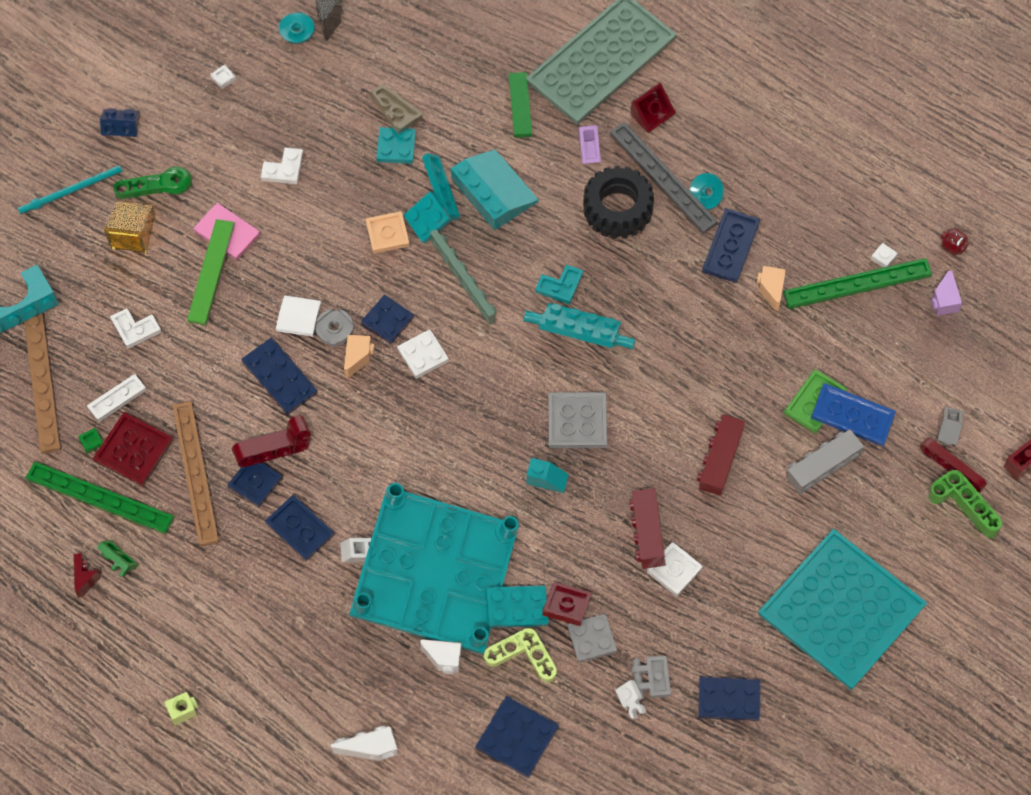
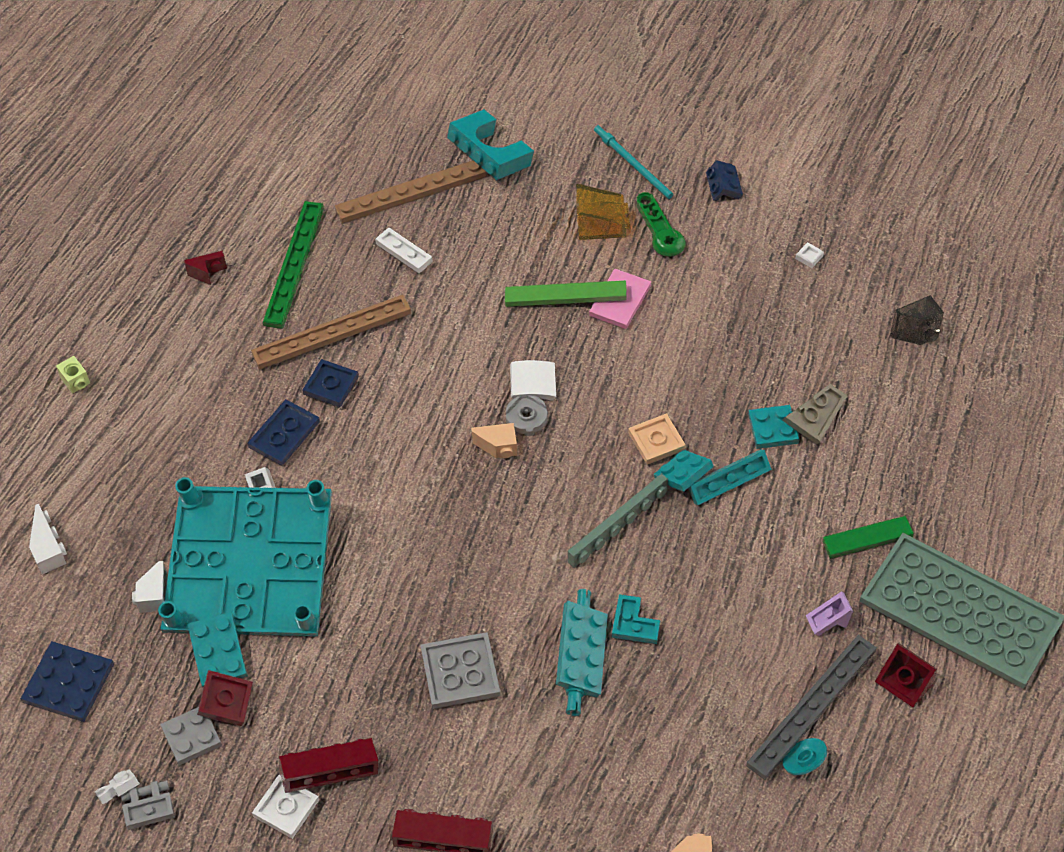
camera: 80 degrees right, 10 degrees down
(90, 440) = (355, 242): green tile -> none
(121, 559) = (229, 289): green plate -> none
(132, 332) = (482, 246): white plate -> none
(133, 449) = (349, 276): dark red plate -> none
(274, 445) = (380, 400): dark red beam -> none
(279, 376) = (458, 380): dark blue plate -> none
(284, 172) = (713, 336): white plate -> none
(294, 22) = (888, 299): teal dish -> none
(387, 319) = (549, 462): dark blue plate -> none
(423, 354) = (514, 503): white plate -> none
(492, 187) = (744, 529): teal slope -> none
(522, 646) = (173, 667): yellowish green beam -> none
(546, 476) = (382, 650): teal slope -> none
(623, 182) = (765, 633): black tyre -> none
(731, 245) = (740, 801): dark blue tile -> none

